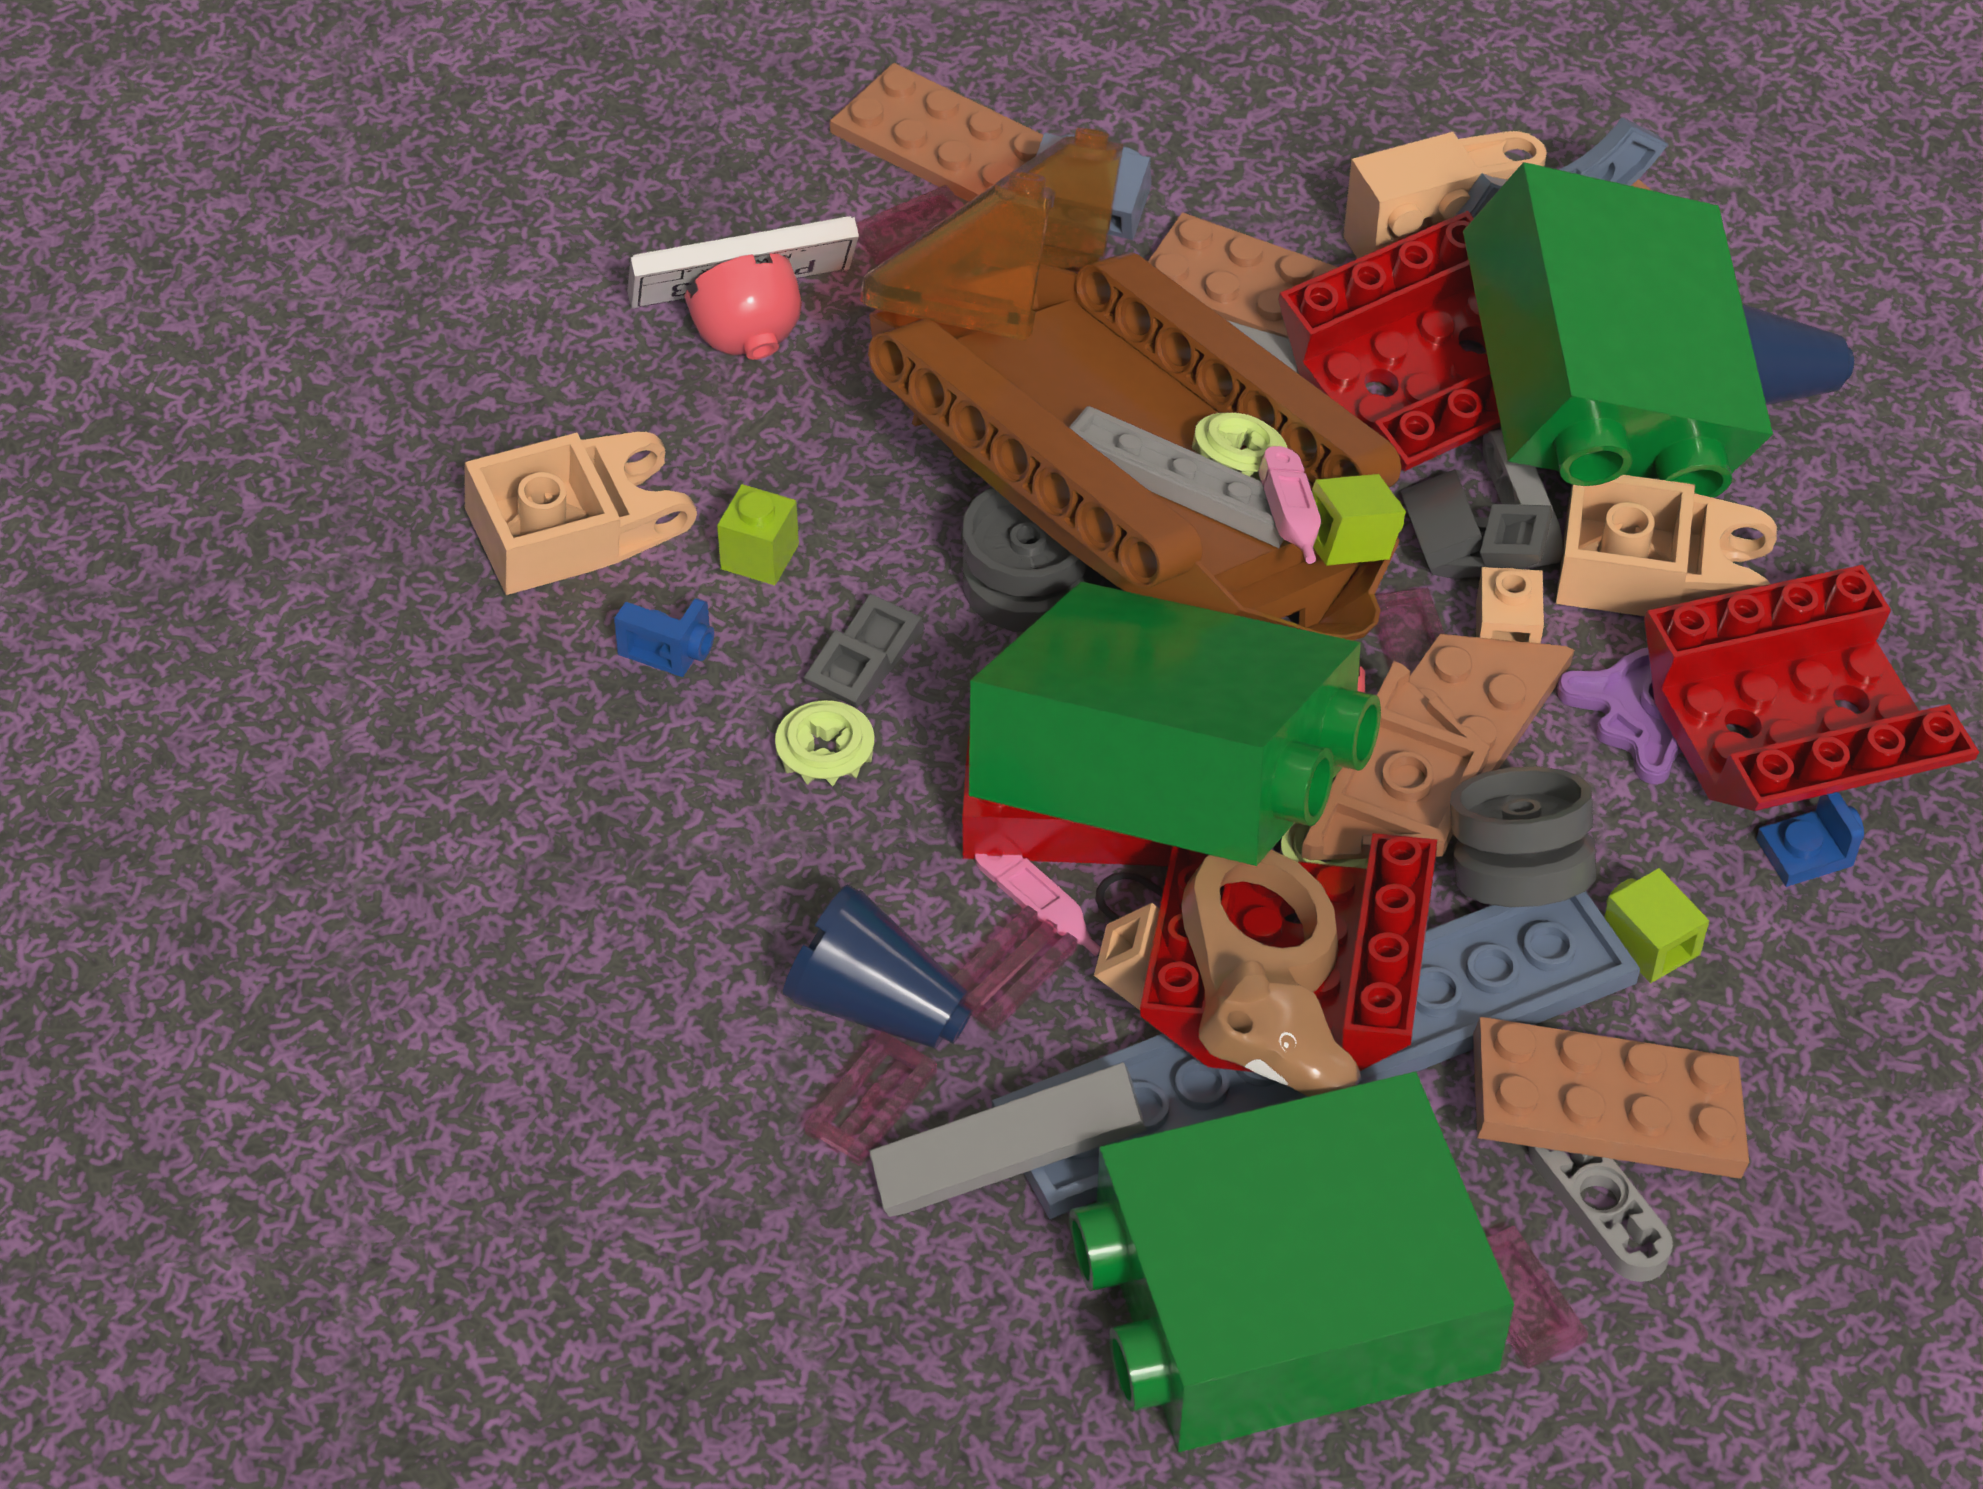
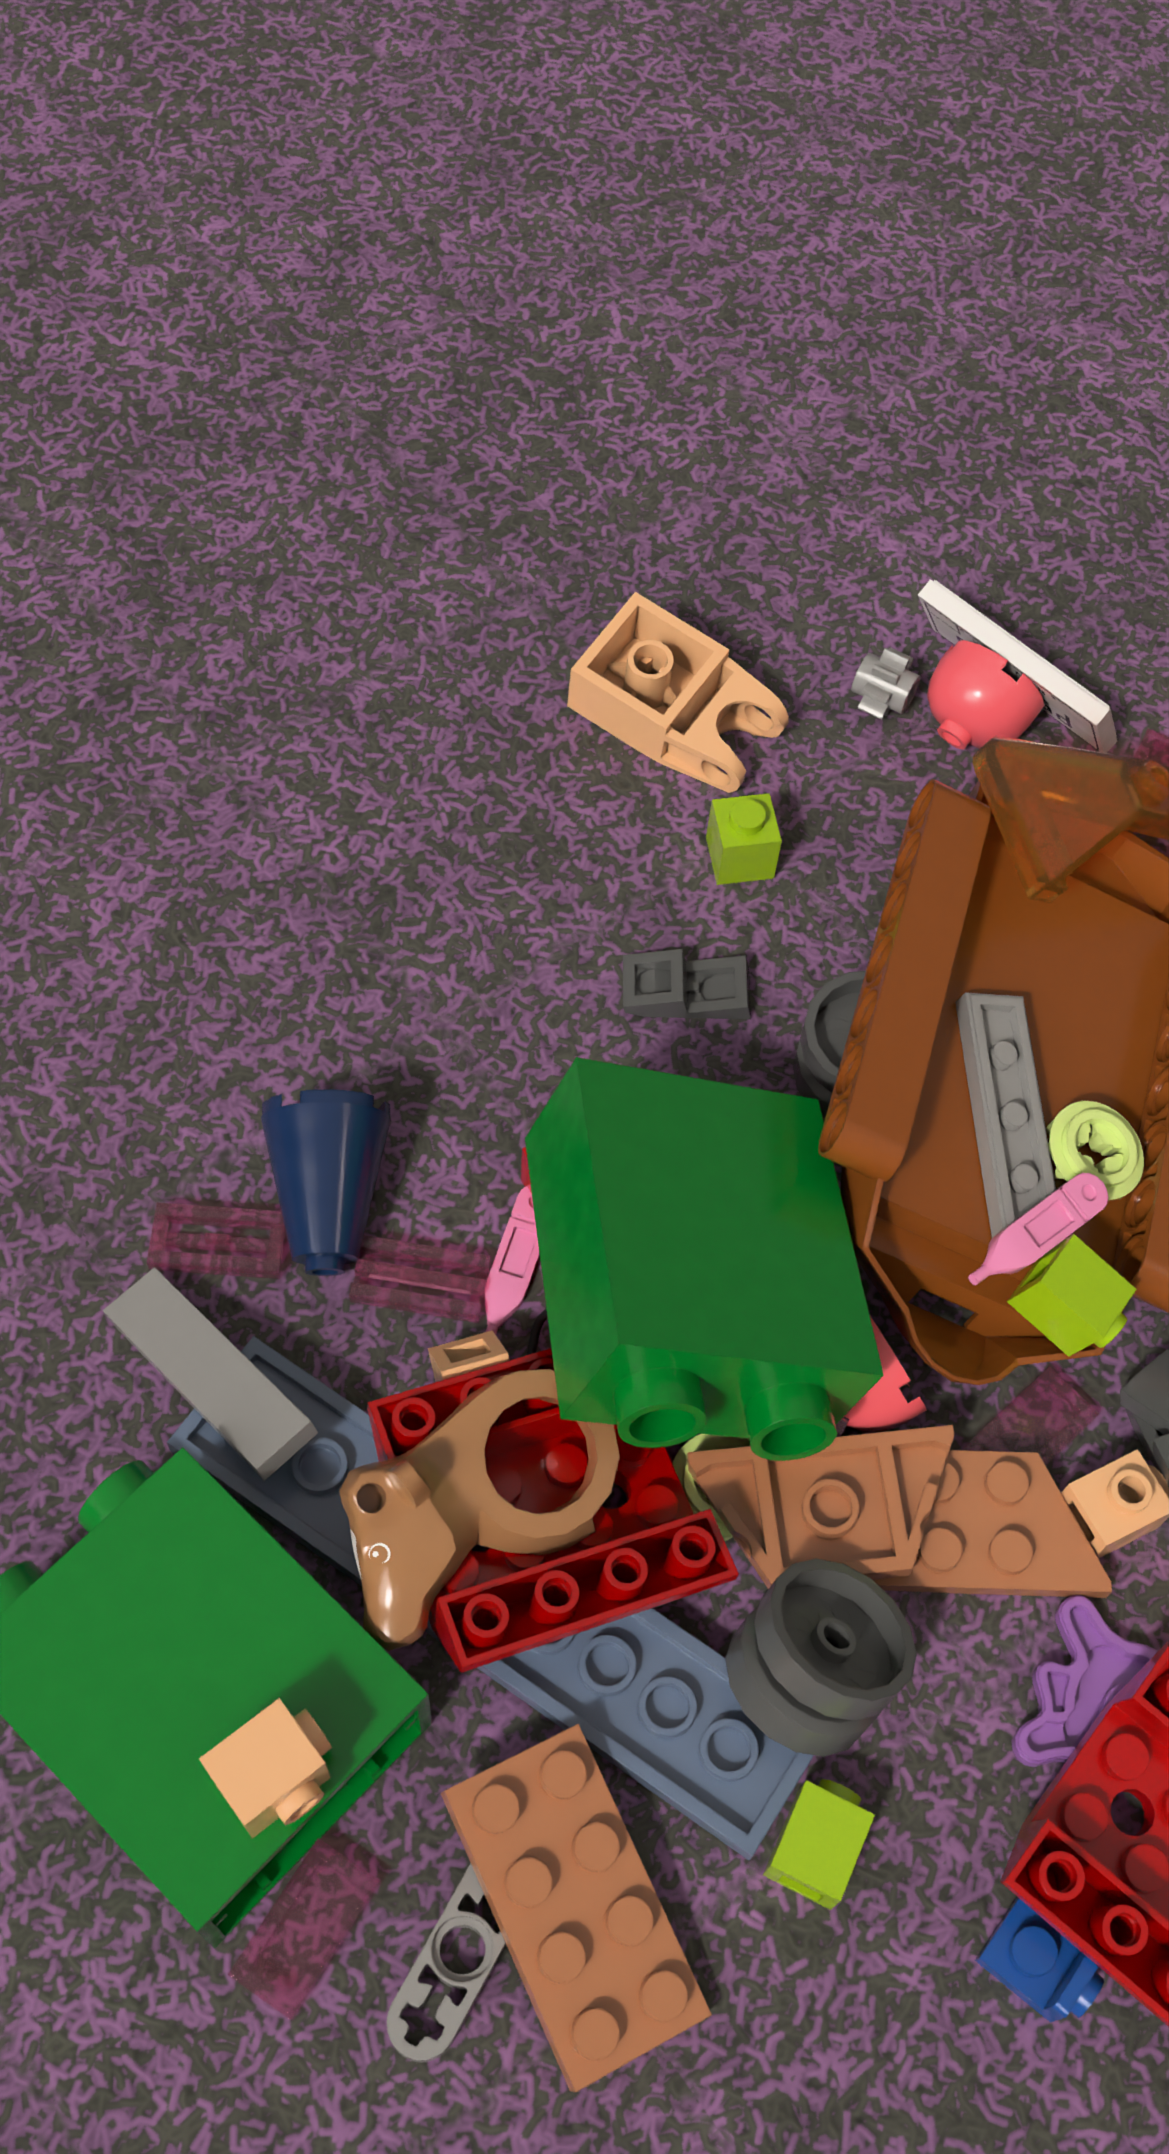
camera: 55 degrees right, 10 degrees up
(663, 640) = (590, 842): blue bracket -> none
(675, 361) = (885, 683): none -> light grey gear
(828, 721) = (556, 986): yellowish green gear -> none
(1424, 1183) = (270, 1767): none -> light nougat brick

